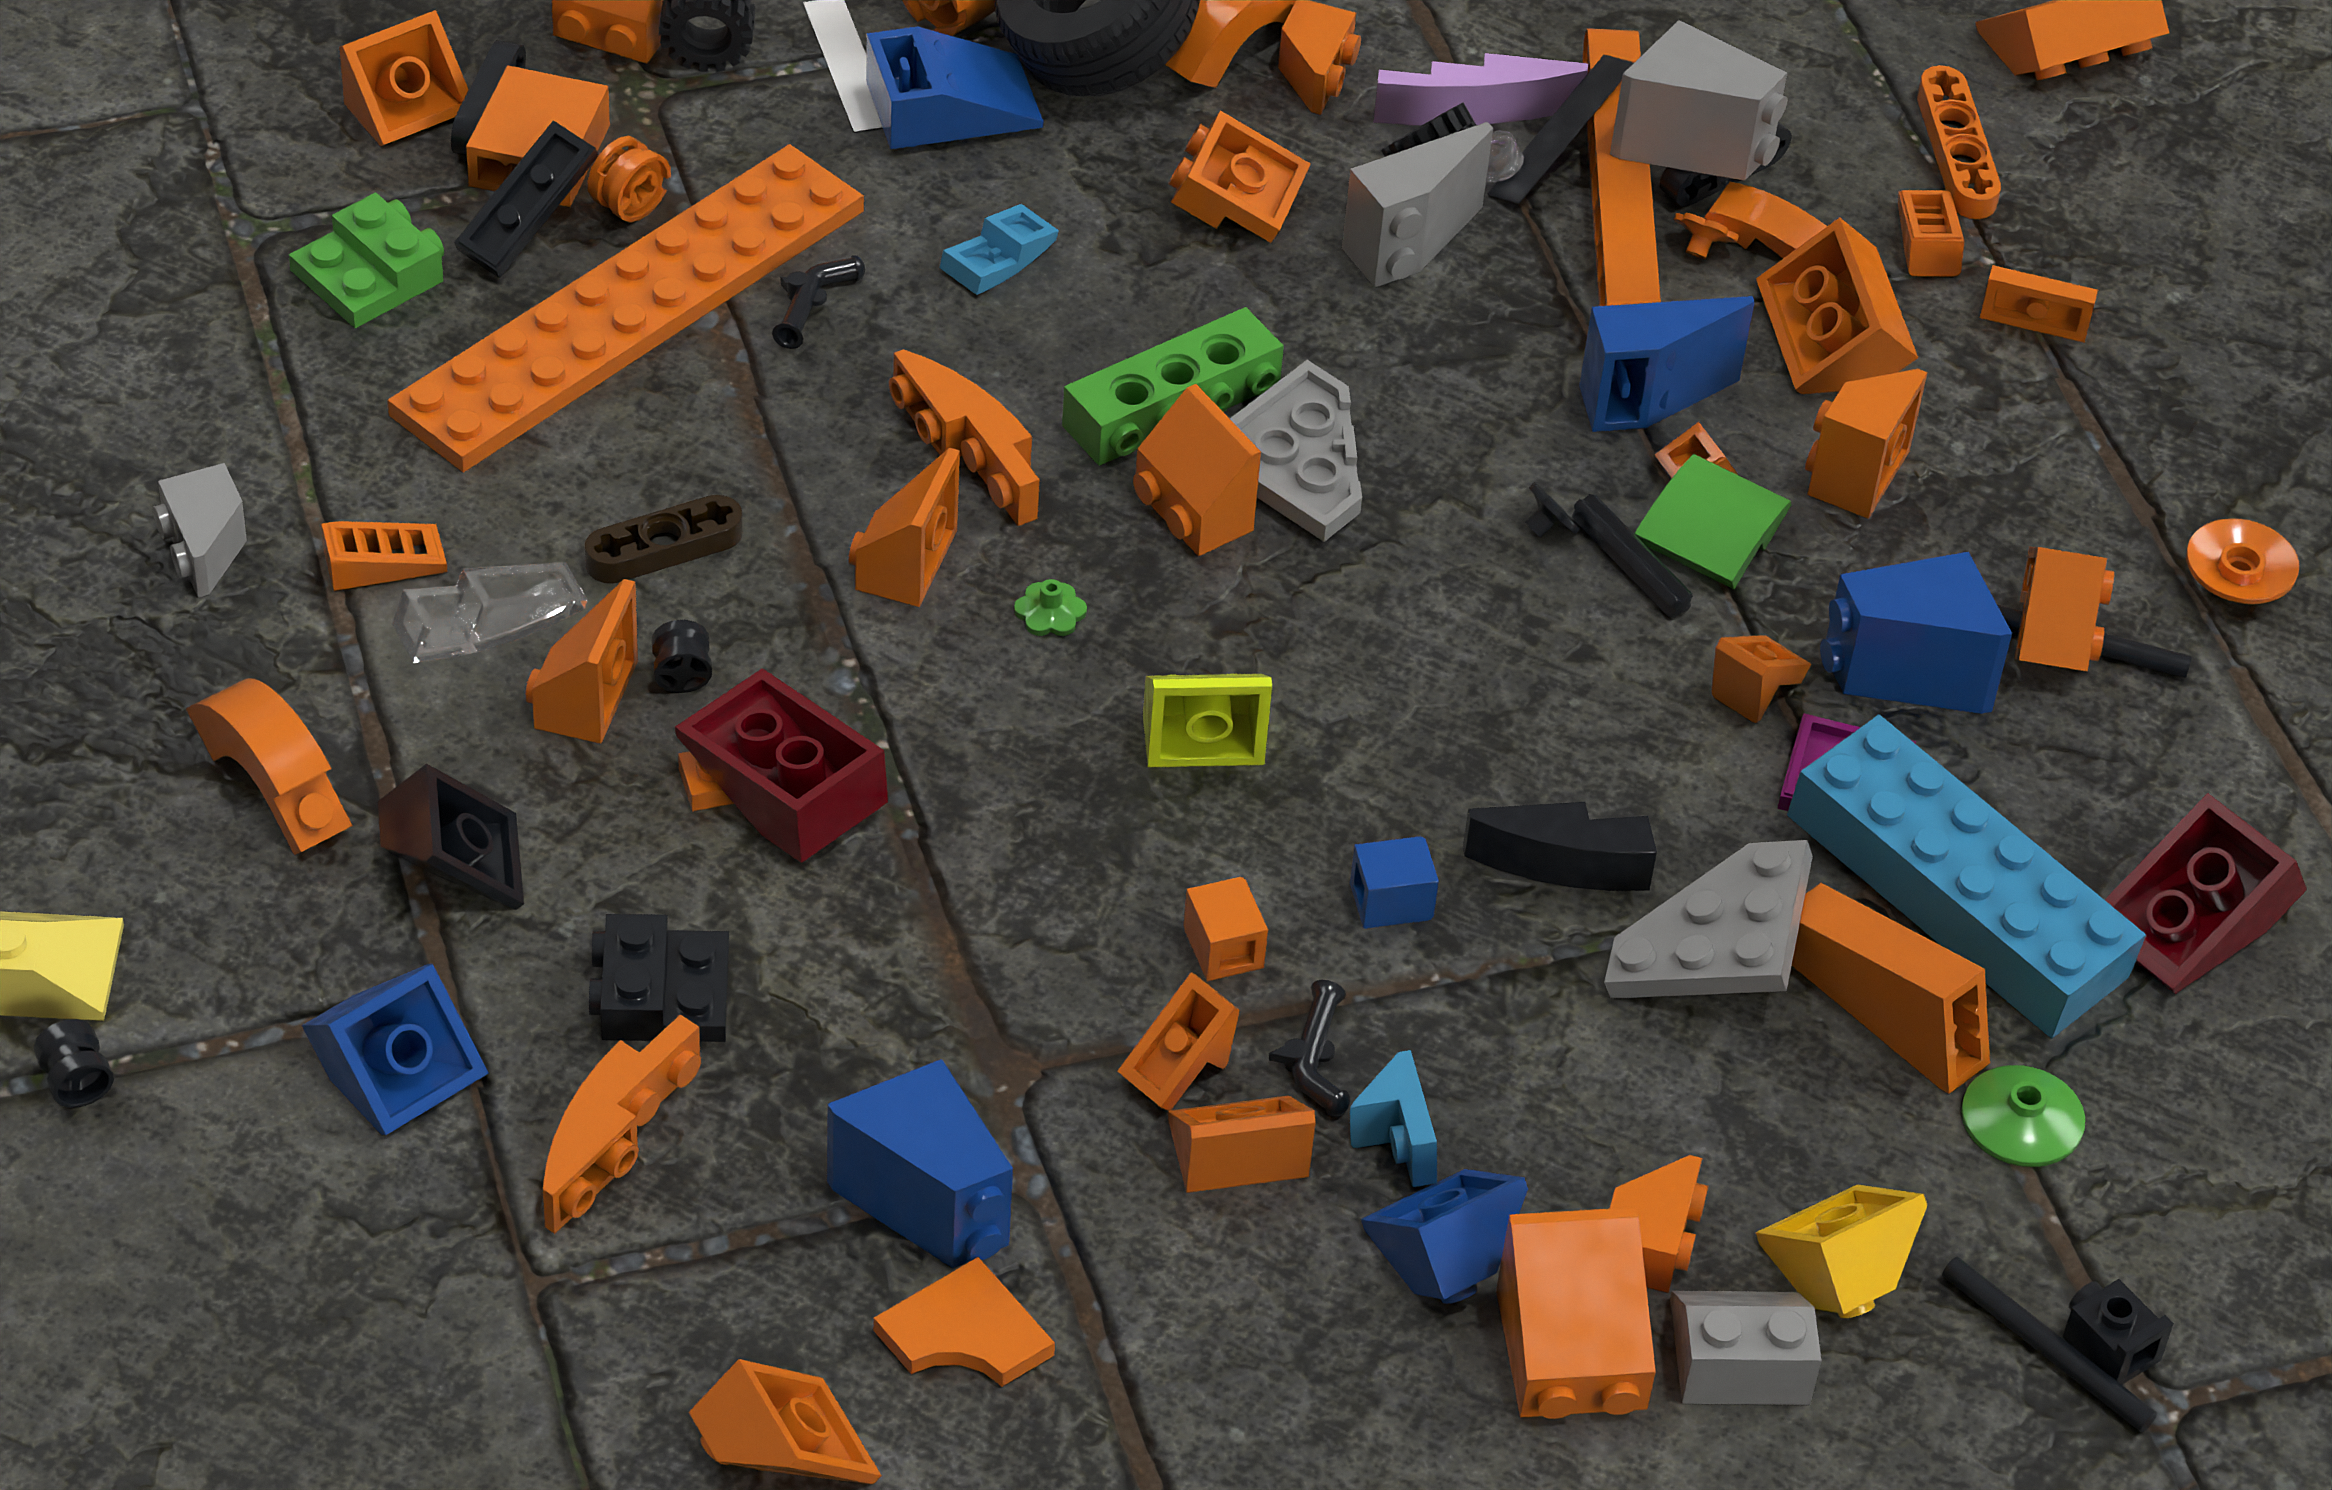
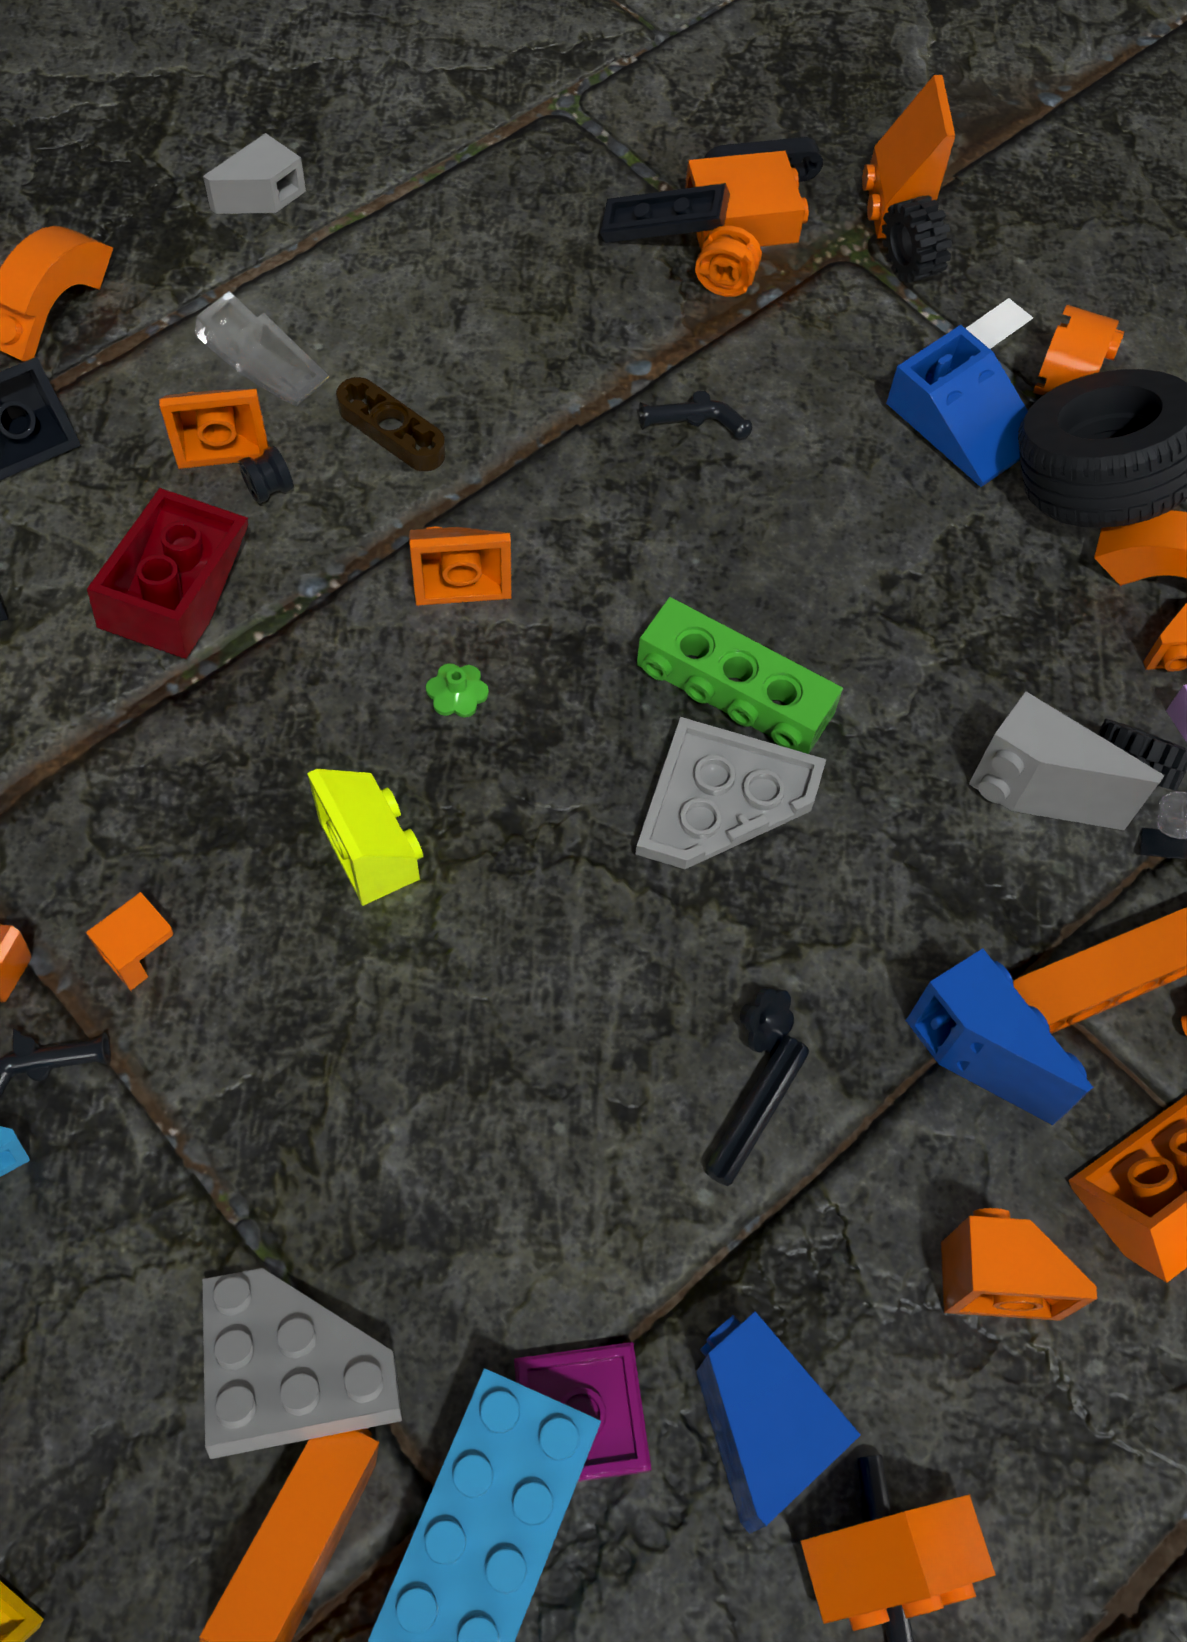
camera: 65 degrees right, 15 degrees up
(353, 558) = (277, 252): orange slope -> none
(370, 260) = (566, 167): bright green plate -> none
(402, 79) = (743, 106): orange slope -> none
(624, 308) = (623, 318): orange plate -> none
(966, 418) = (605, 564): orange slope -> none
(1005, 247) = (834, 514): dark azure slope -> none
(1199, 473) = (630, 729): orange slope -> none
(1237, 177) = (1008, 632): orange plate -> none
(1394, 882) = (240, 1048): blue panel -> none
(1563, 846) = (351, 1185): black slope -> none
(1692, 442) = (917, 1124): orange slope -> none
(1712, 520) = (838, 1165): bright green slope -> none
(1750, 672) = (659, 1277): orange slope -> none

